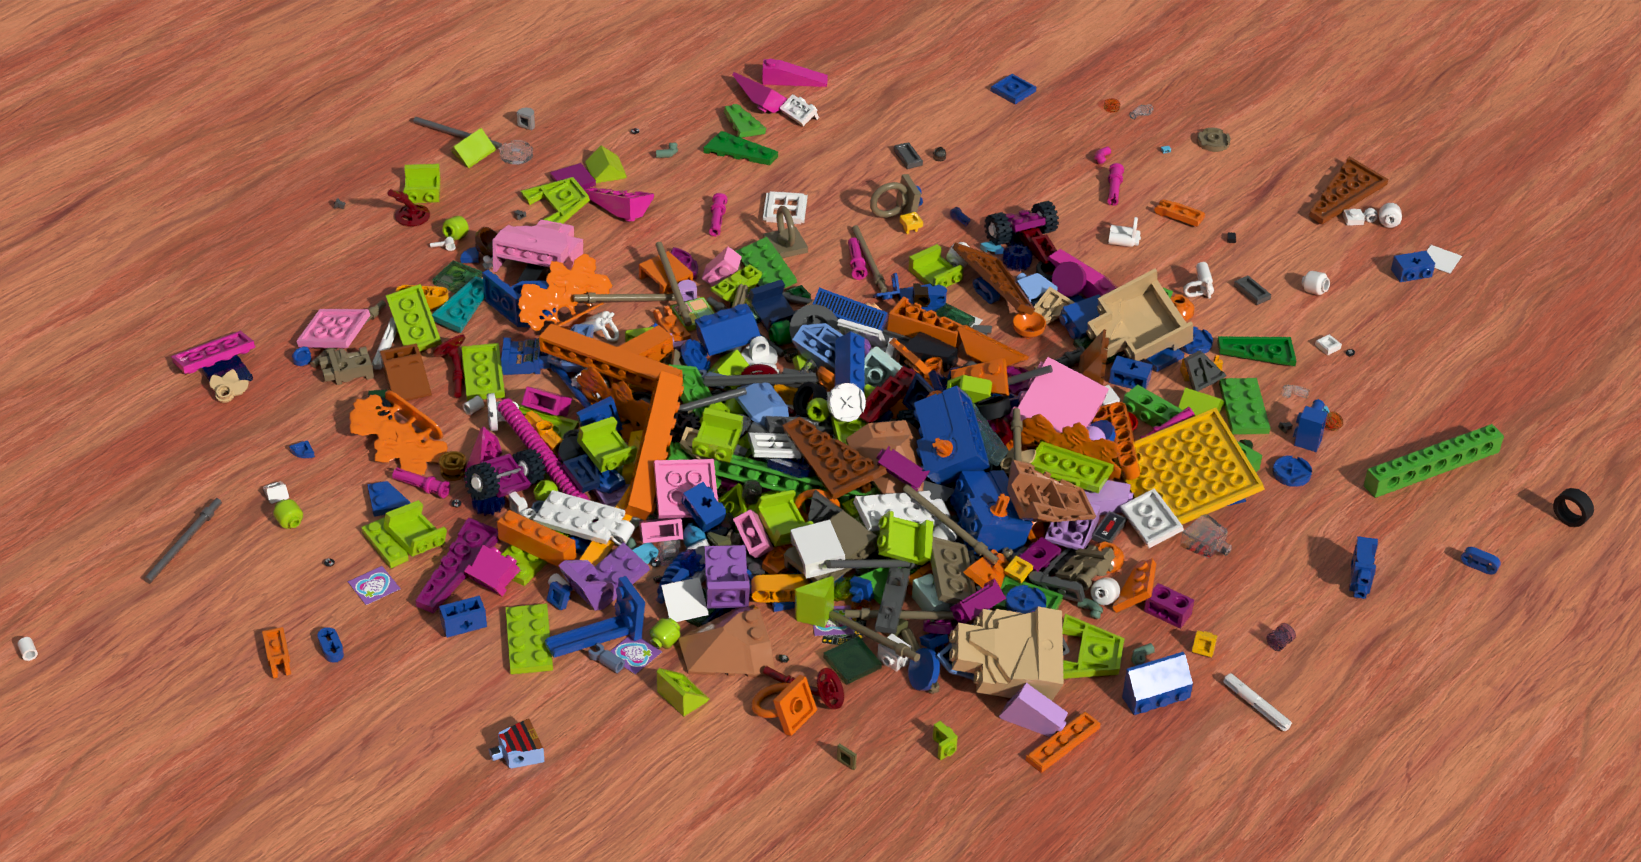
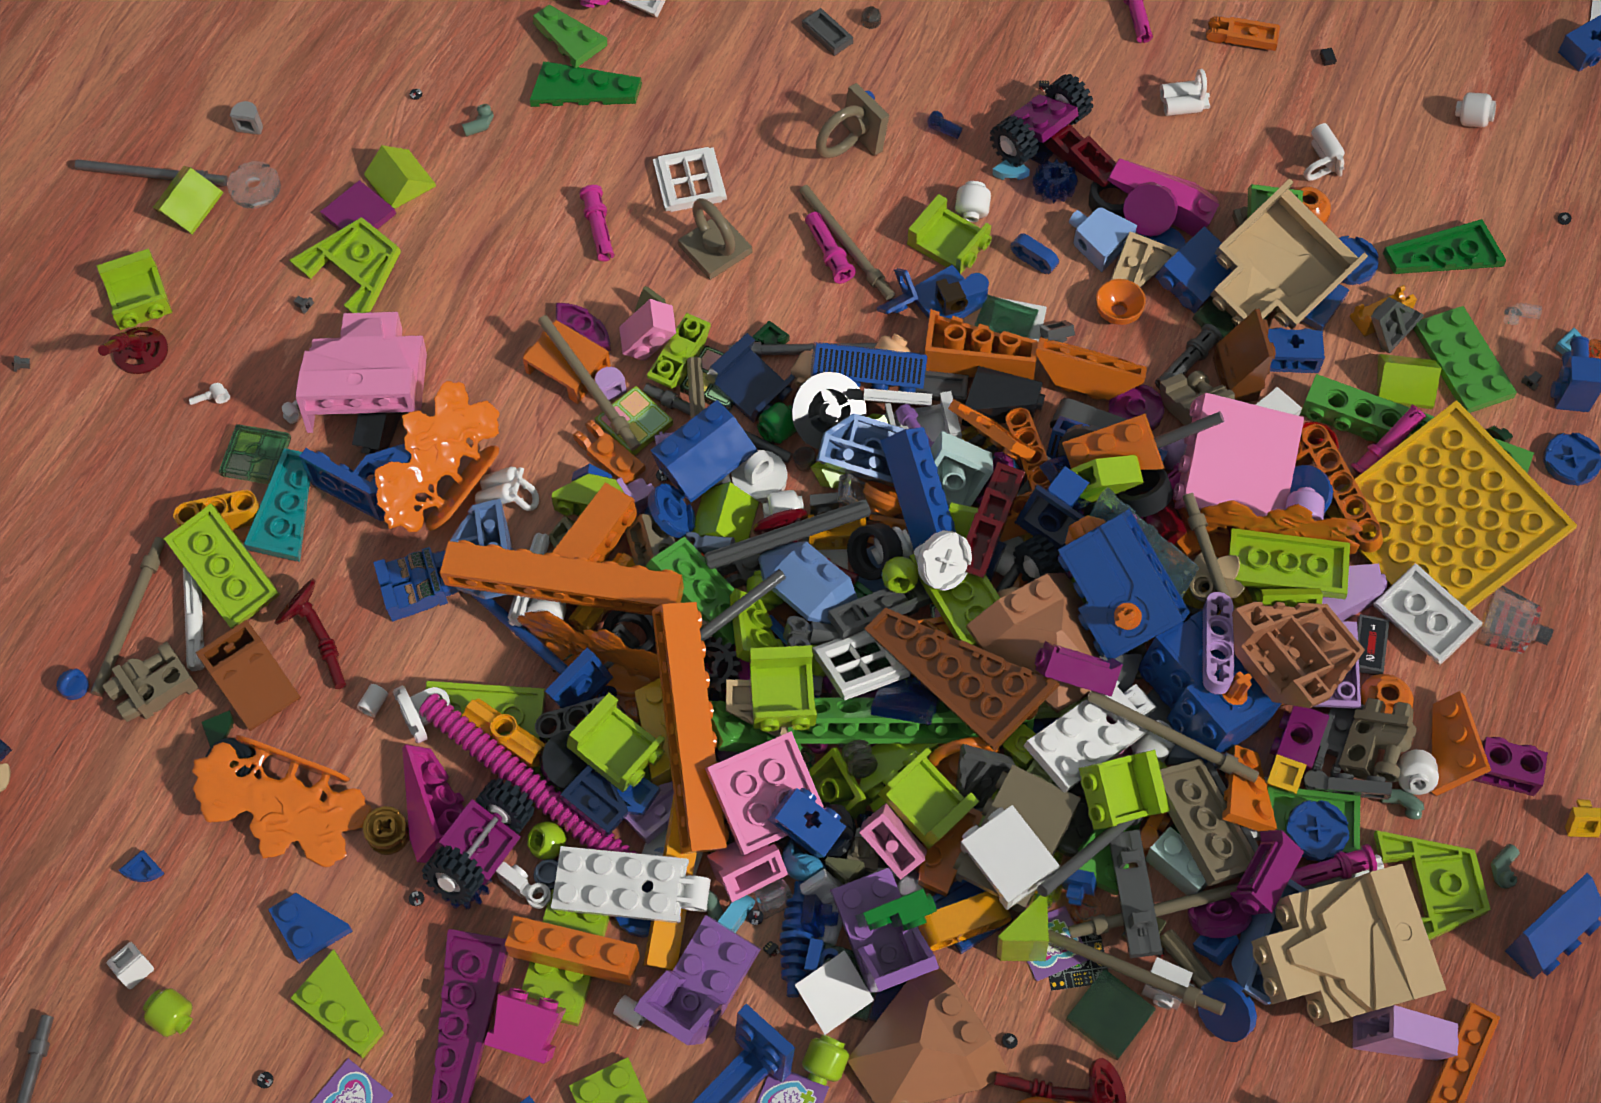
camera: 15 degrees left, 20 degrees up
(333, 328) = (103, 618): bright pink plate -> none
(413, 529) = (376, 982): lime panel -> none
(428, 484) = (362, 879): dark pink pin -> none
(455, 227) = (217, 362): lime head -> none
(470, 256) = (259, 405): blue tile -> none
(483, 371) = (363, 630): lime plate -> none
(484, 241) = (282, 373): reddish brown piece -> none
(546, 401) = (484, 667): dark pink hips -> none
(559, 595) = (640, 1036): blue tile -> none
(592, 297) = (480, 447): dark tan bar -> none
(620, 202) = (450, 242): dark pink wedge -> none
(739, 556) = (905, 911): none -> green plate
(767, 260) = (699, 291): bright green plate -> none
(911, 222) = (883, 158): yellow tile -> none
(940, 383) = (1068, 486): none -> blue slope
(997, 275) = (1040, 225): dark orange wing -> none
(998, 479) = (1213, 641): none -> lavender beam
(1009, 554) = (1264, 741): dark tan arm -> none
(1252, 290) = (1393, 144): dark grey tile -> none
(1328, 344) = (1531, 213): white tile -> none

